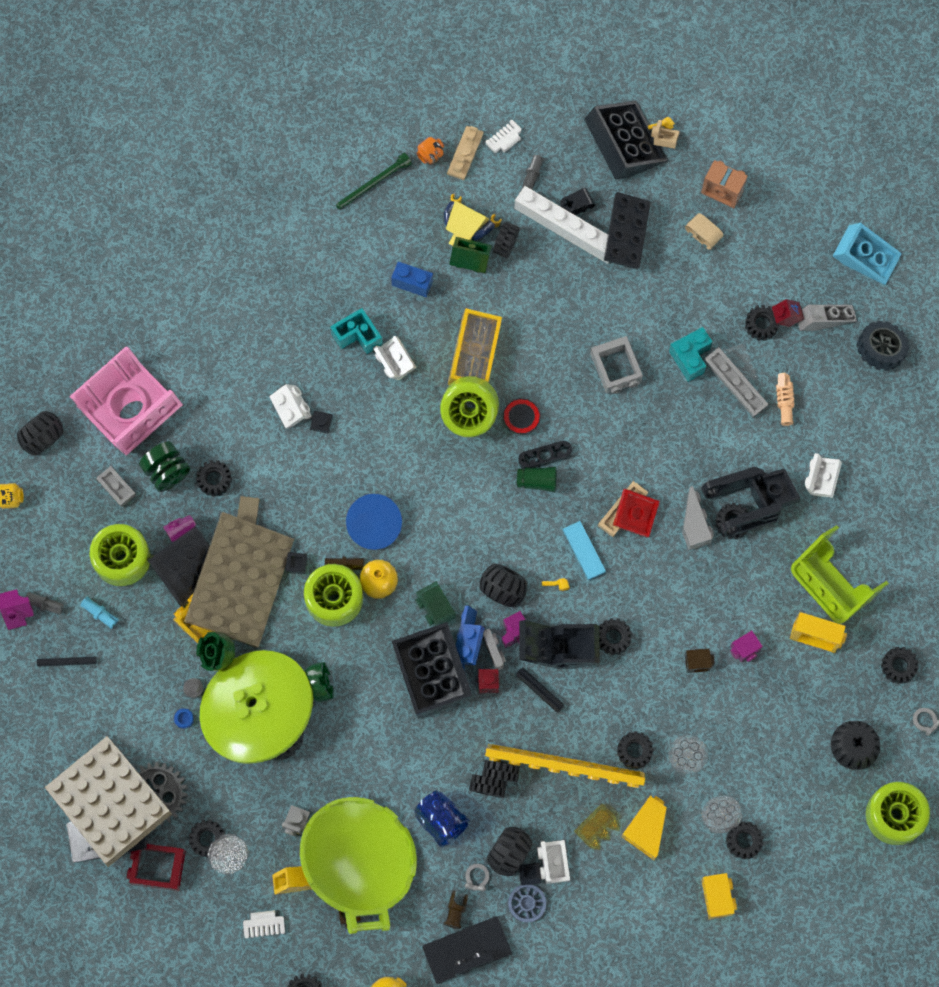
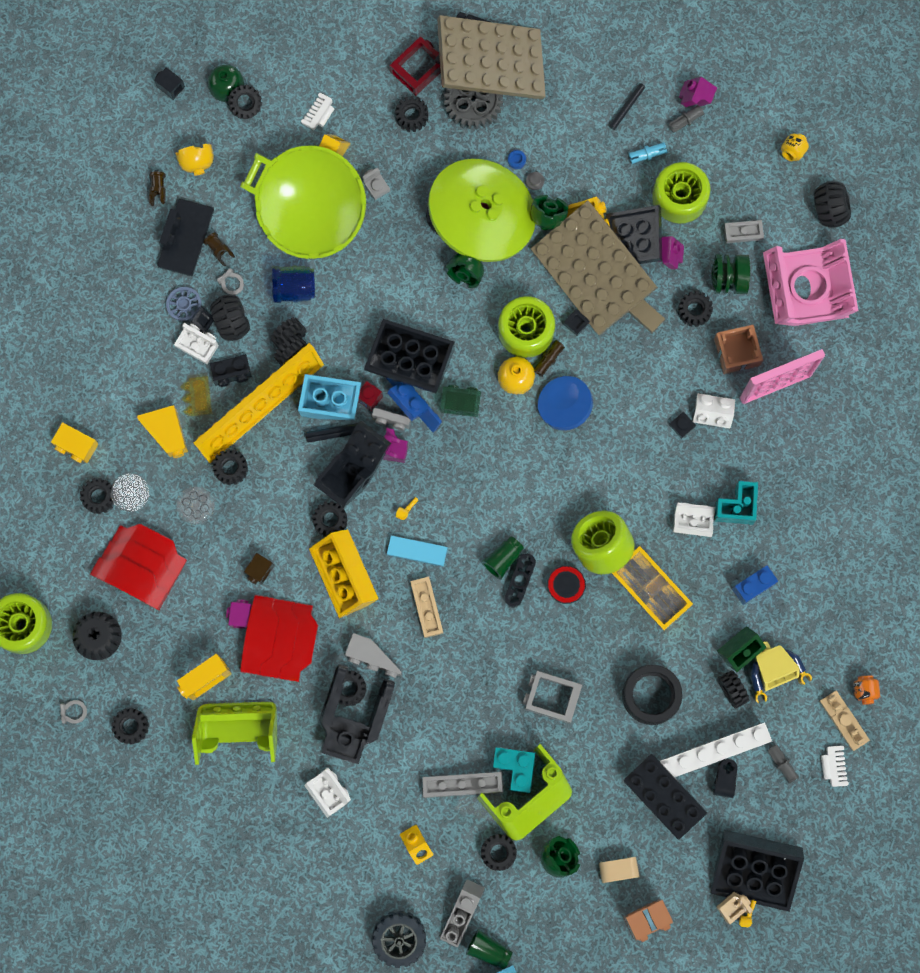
camera: 130 degrees right, 5 degrees up
(225, 420) = (738, 349): none -> nougat container
(228, 854) = (387, 118): clear tile -> none
(230, 361) = (781, 376): none -> bright pink tile
(402, 162) = (872, 658): dark green piece -> none
(503, 585) = (436, 465): black wheel -> none
(516, 708) = (329, 398): none -> medium azure slope
(554, 815) = (230, 370): none -> black bracket
(563, 274) = (671, 680): none -> black tyre
(636, 513) = (414, 612): red tile -> none
(648, 591) = (343, 573): none -> yellow slope
(683, 312) = (522, 821): none -> lime windscreen
(731, 274) = (560, 857): none -> dark green cylinder
(738, 602) = (279, 639): none -> red slope
(772, 761) = (140, 564): none -> red slope
(785, 398) = (418, 817): light nougat hinge -> none
(787, 312) = (488, 877): dark red brick -> none
(805, 387) = (414, 843): none -> yellow bracket
(837, 279) = (488, 950): none -> dark green plant

